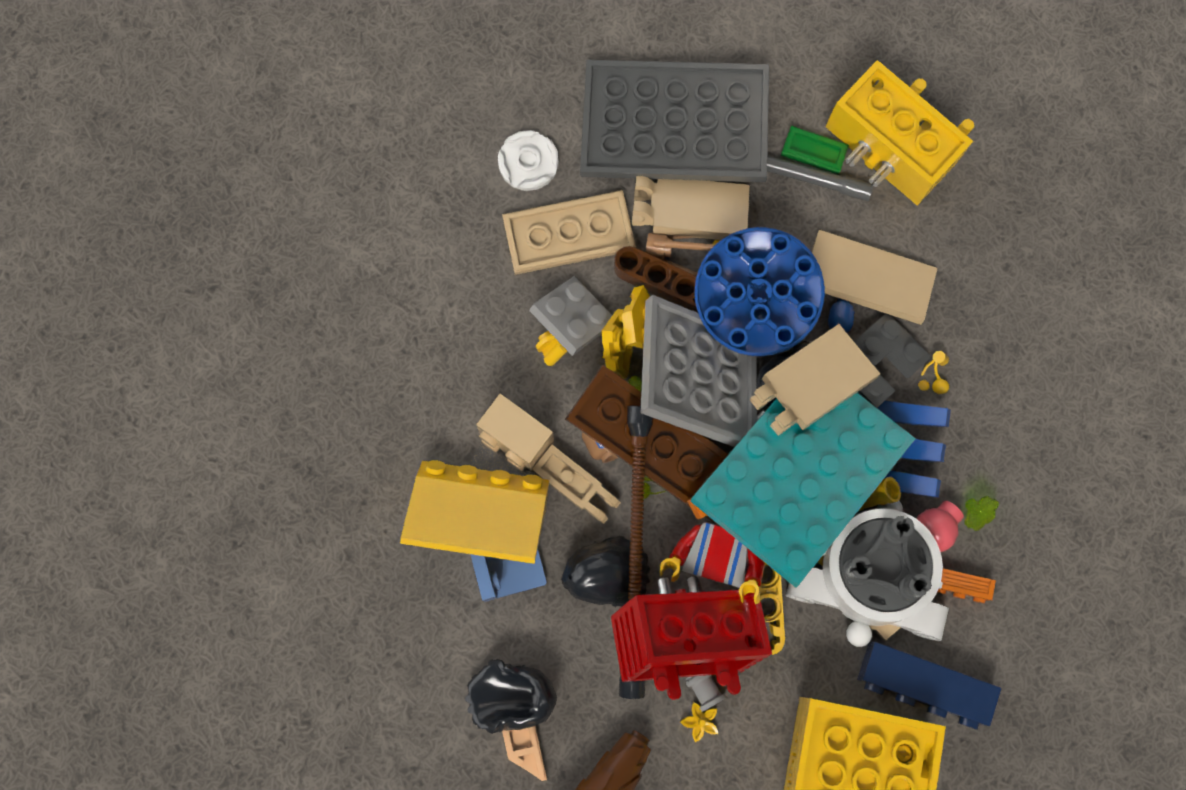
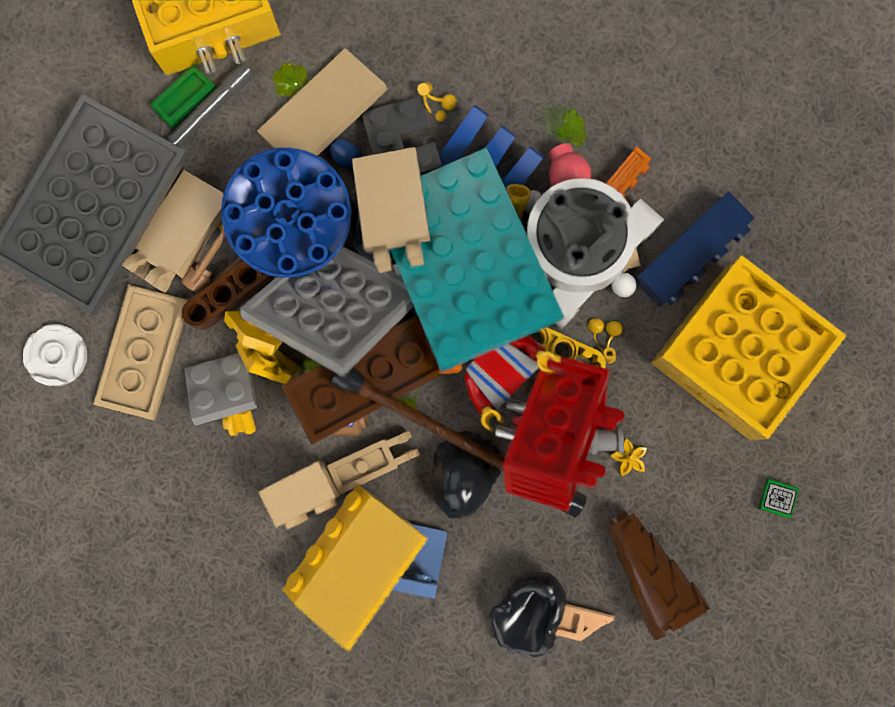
camera: 60 degrees left, 5 degrees up
(813, 644) = (613, 328): none -> yellow piece
(876, 239) = (290, 86): none -> clear neon green plant

